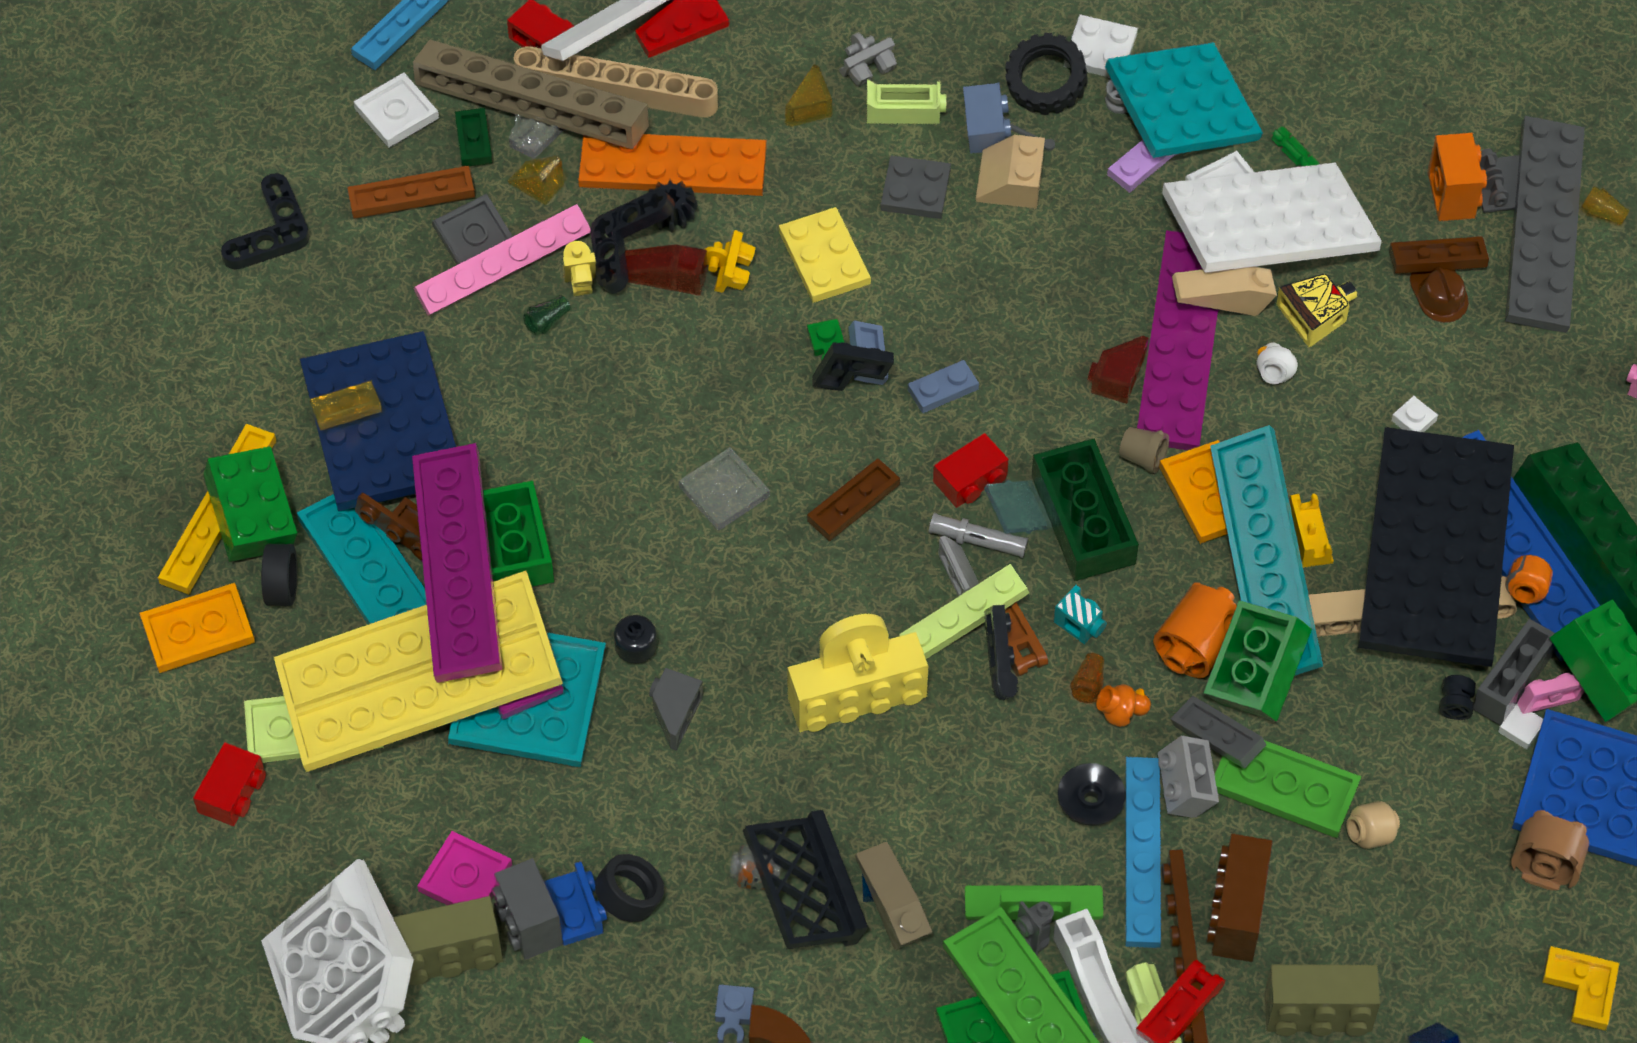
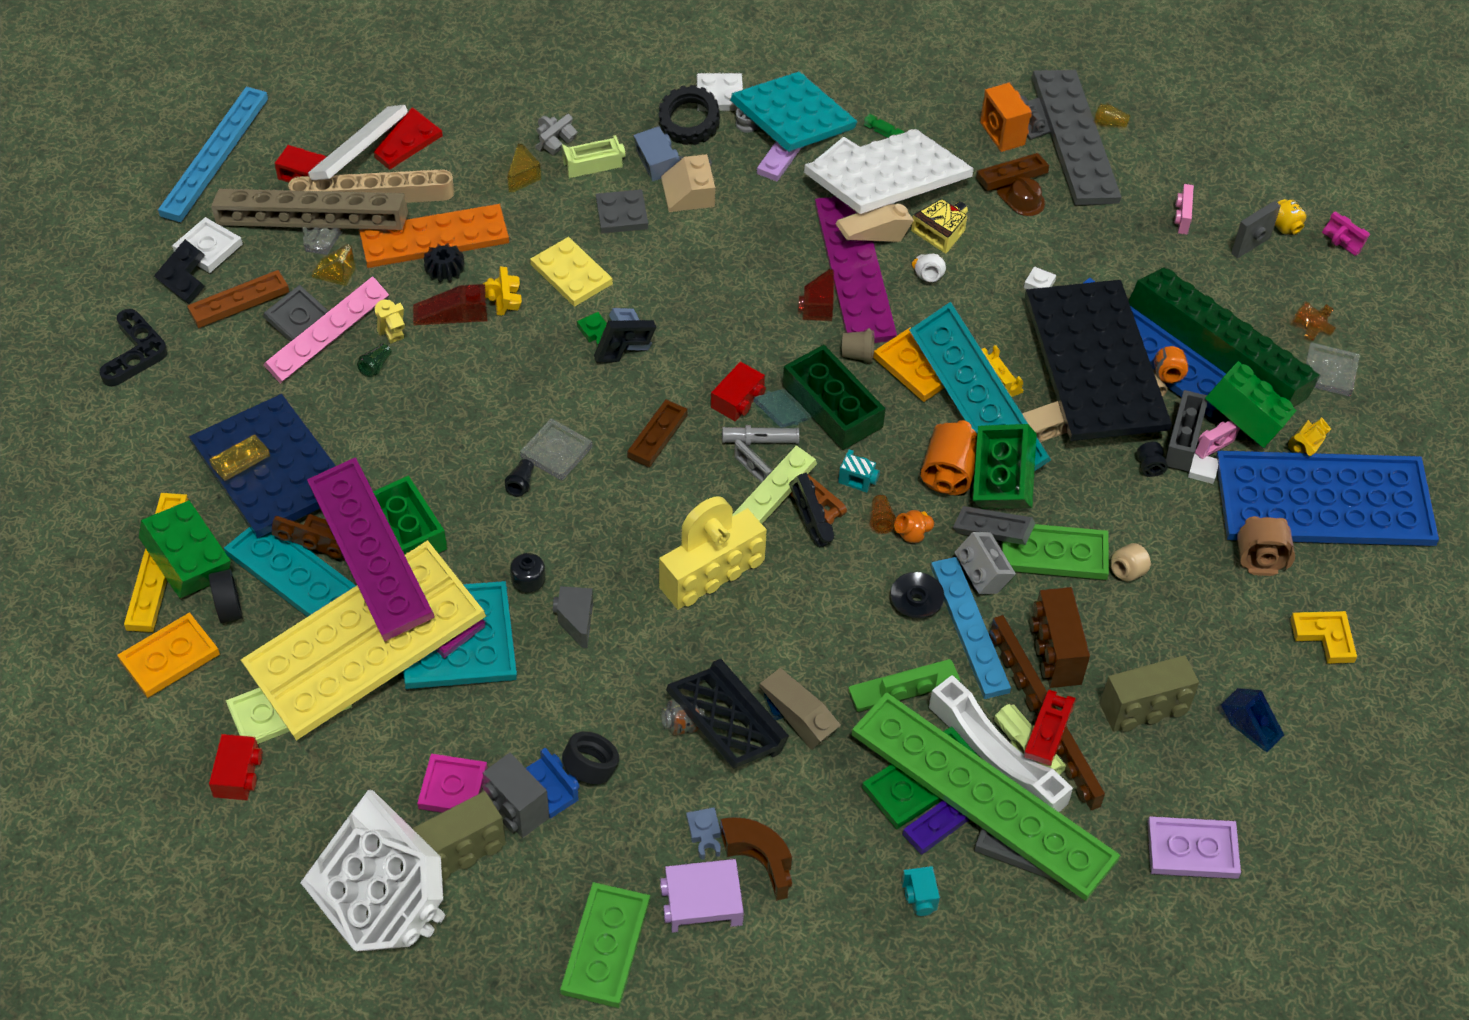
camera: 20 degrees left, 5 degrees down
(348, 139) = (177, 270): none -> black plate
(473, 137) = (274, 250): dark green plate -> none
(651, 209) = (409, 287): black beam -> none
(666, 516) = (519, 479): none -> black cone
(943, 386) = (693, 340): sand blue plate -> none
(1034, 924) = (916, 695): dark grey hinge -> none

